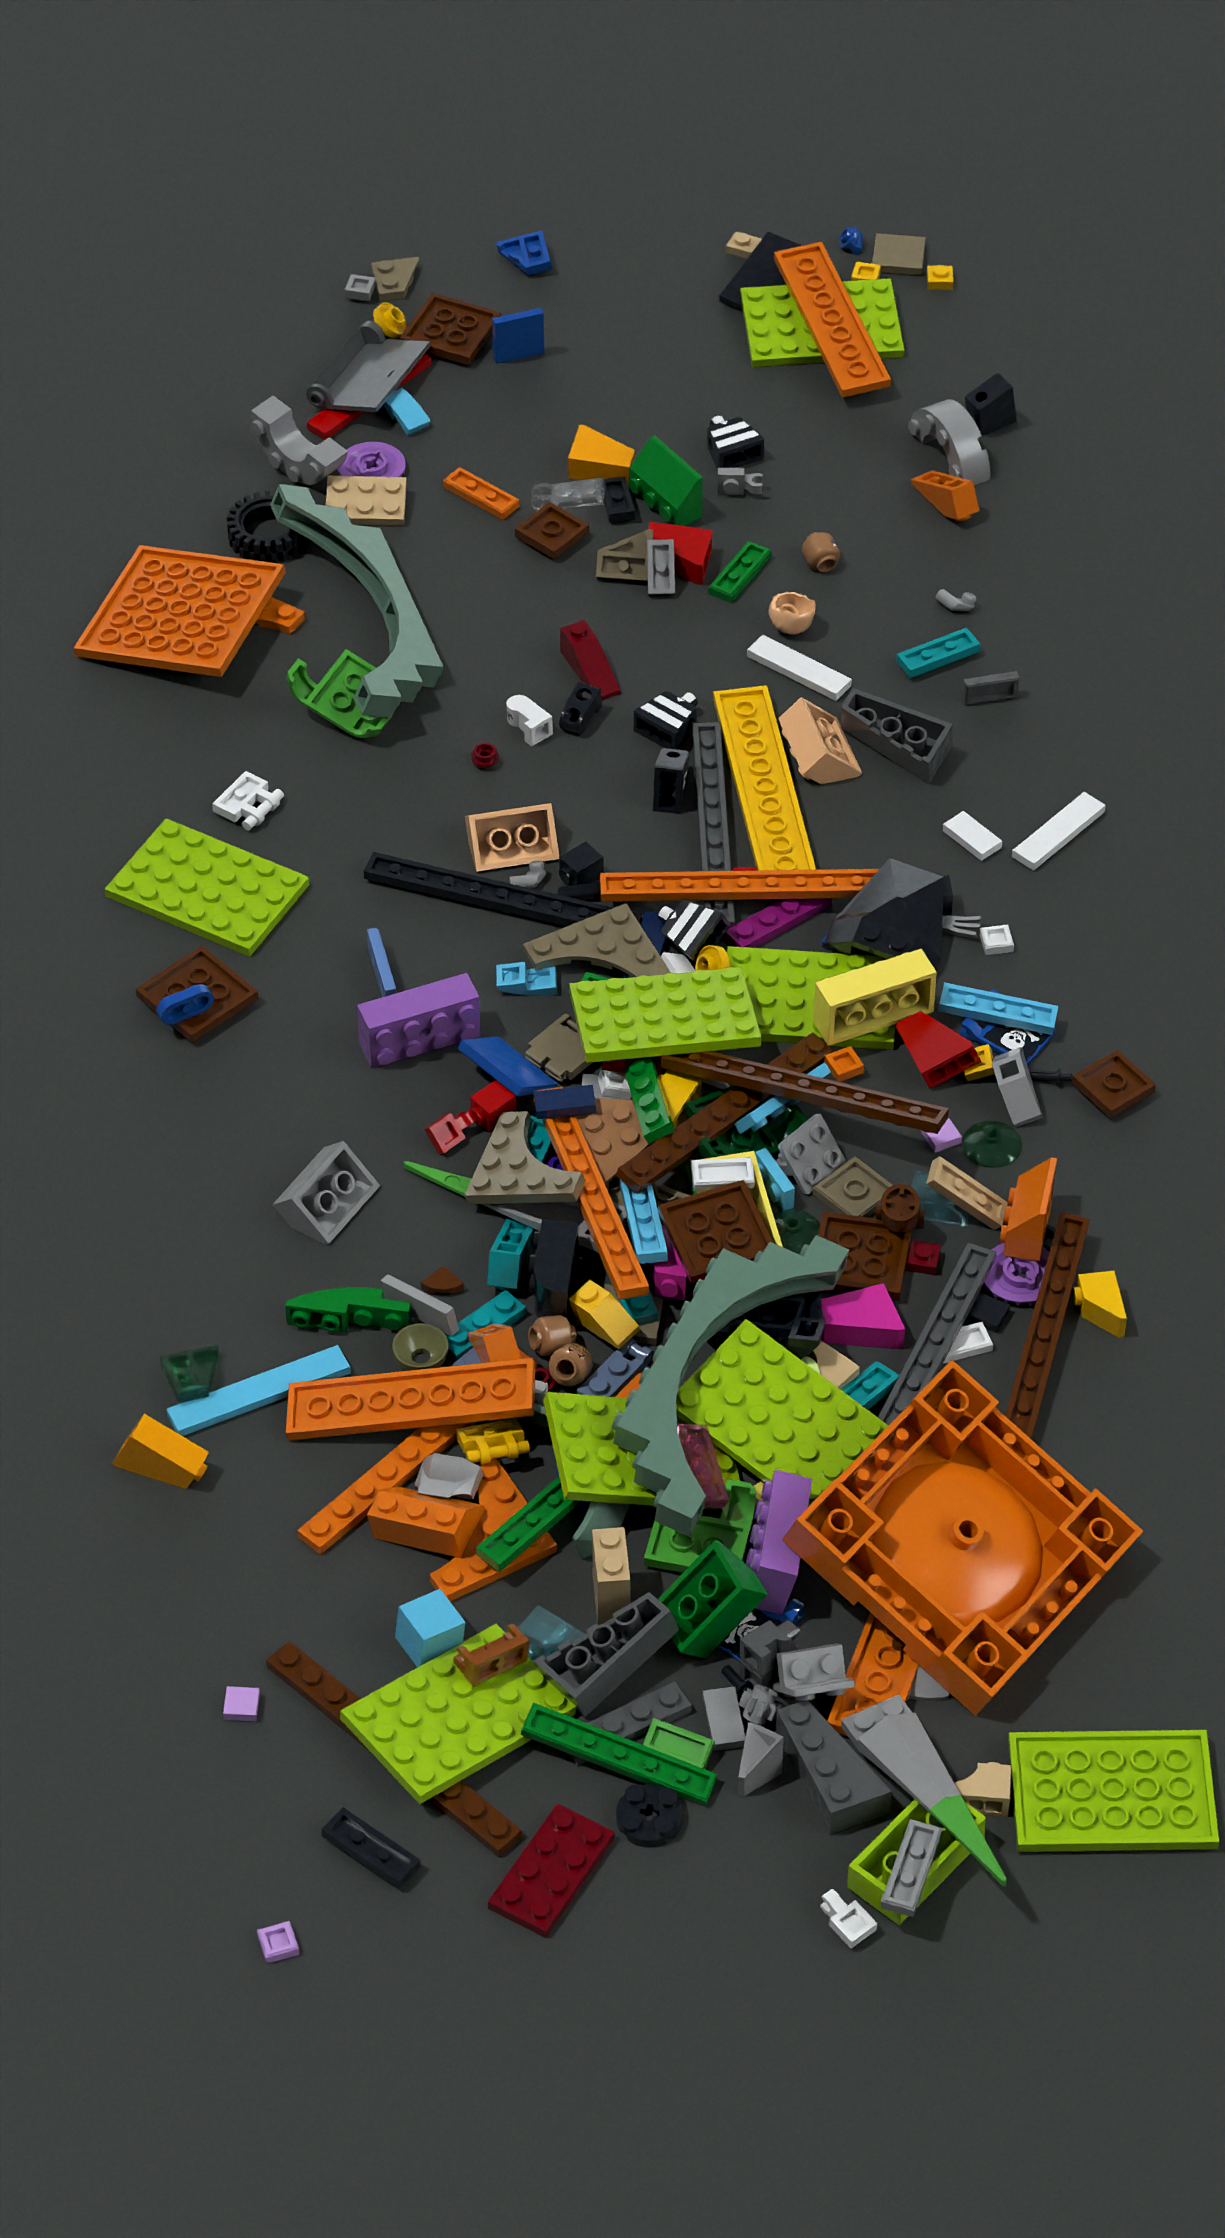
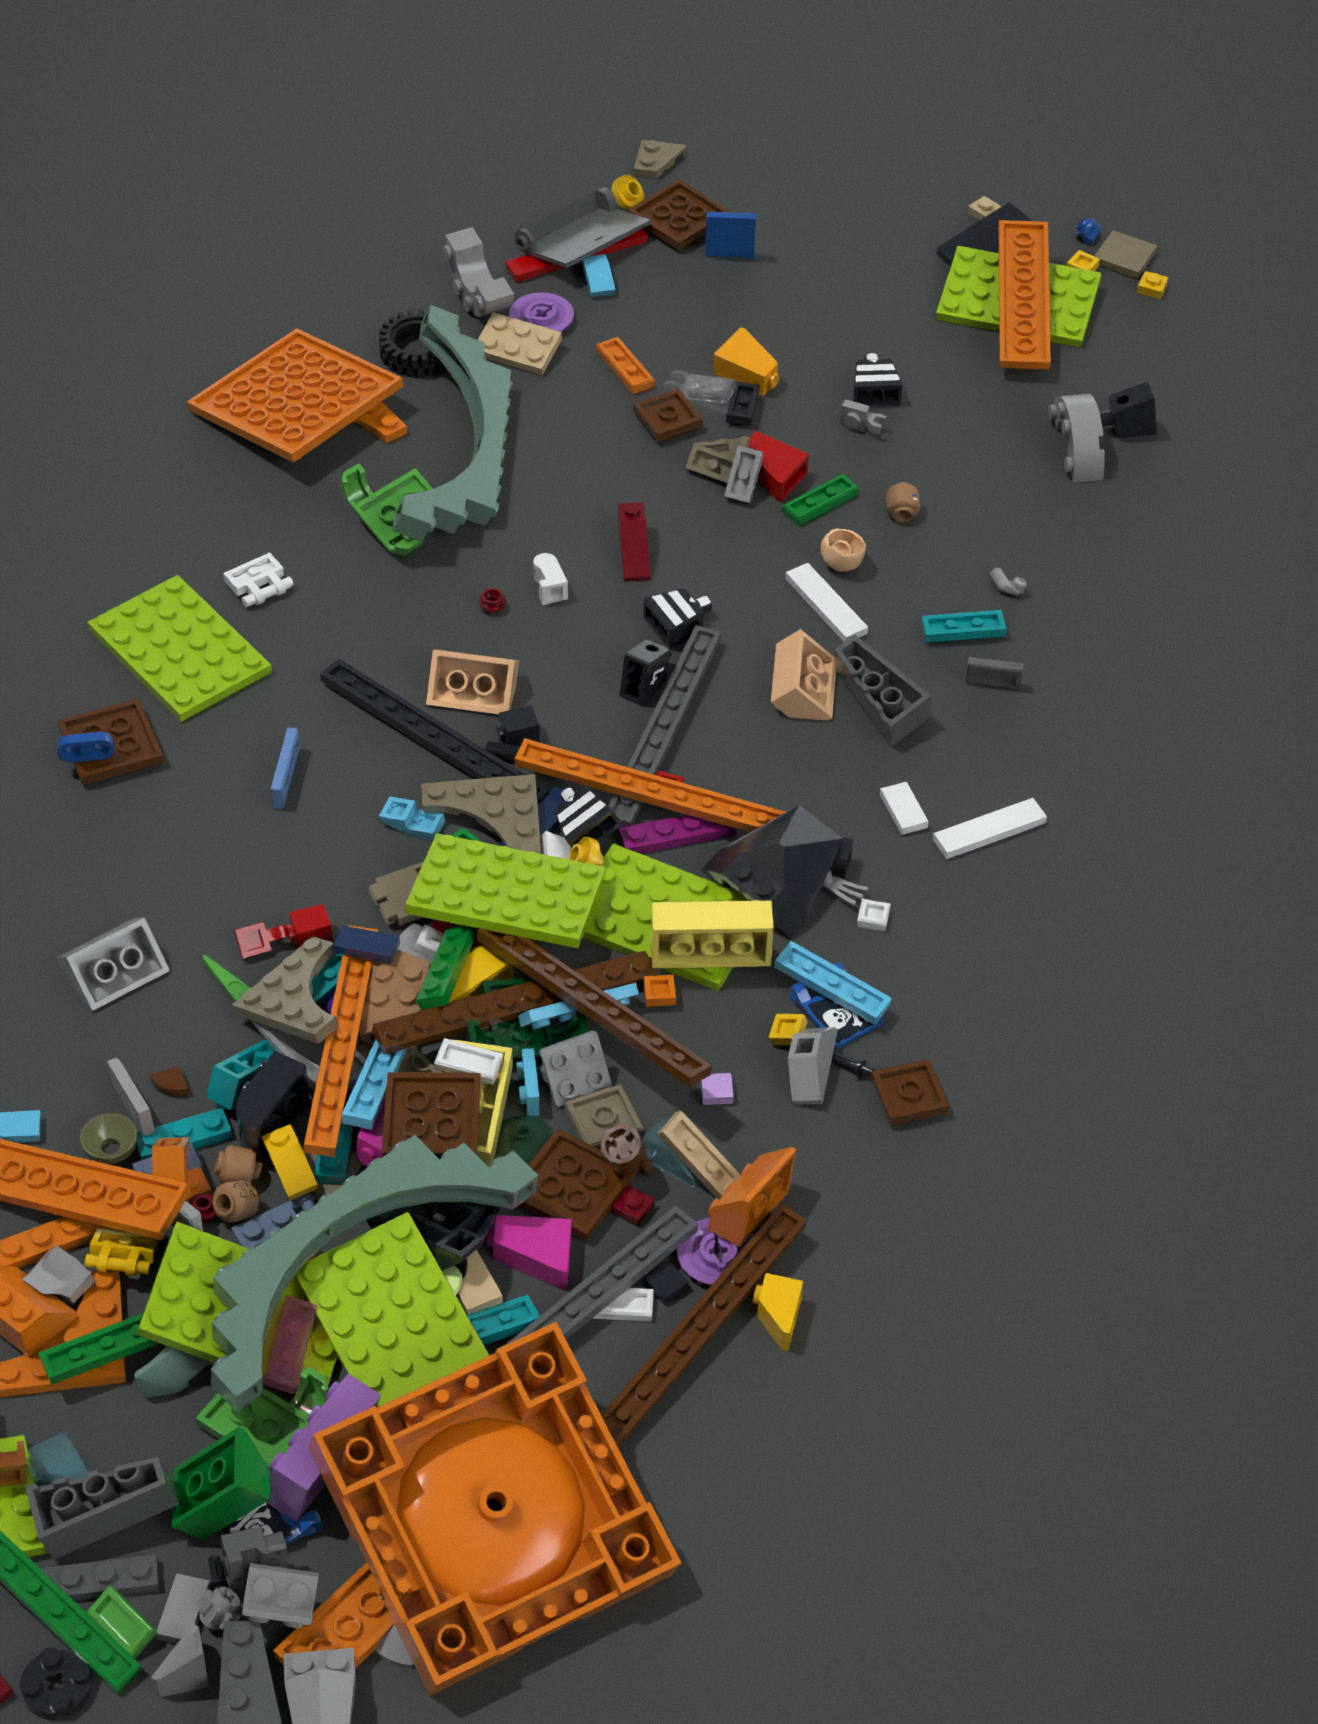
camera: 20 degrees right, 0 degrees up
(338, 1307) = (59, 1075): green slope -> none
(360, 287) = (619, 158): light grey plate -> none
(418, 1020) = (284, 826): medium lavender brick -> none
(506, 1065) = (342, 893): blue tile -> none
(526, 252) = (785, 166): blue wing -> none
(533, 876) = (470, 726): light grey arm -> none
(579, 709) = (601, 582): black leg -> none
(610, 1572) = (145, 1421): tan brick -> none
(667, 483) = (790, 402): green slope -> none
(763, 779) = (732, 698): yellow plate -> none
(936, 1048) = (748, 1003): red slope -> none
(949, 494) = (1051, 482): orange slope -> none
(991, 1144) = (758, 1122): clear green dish -> none

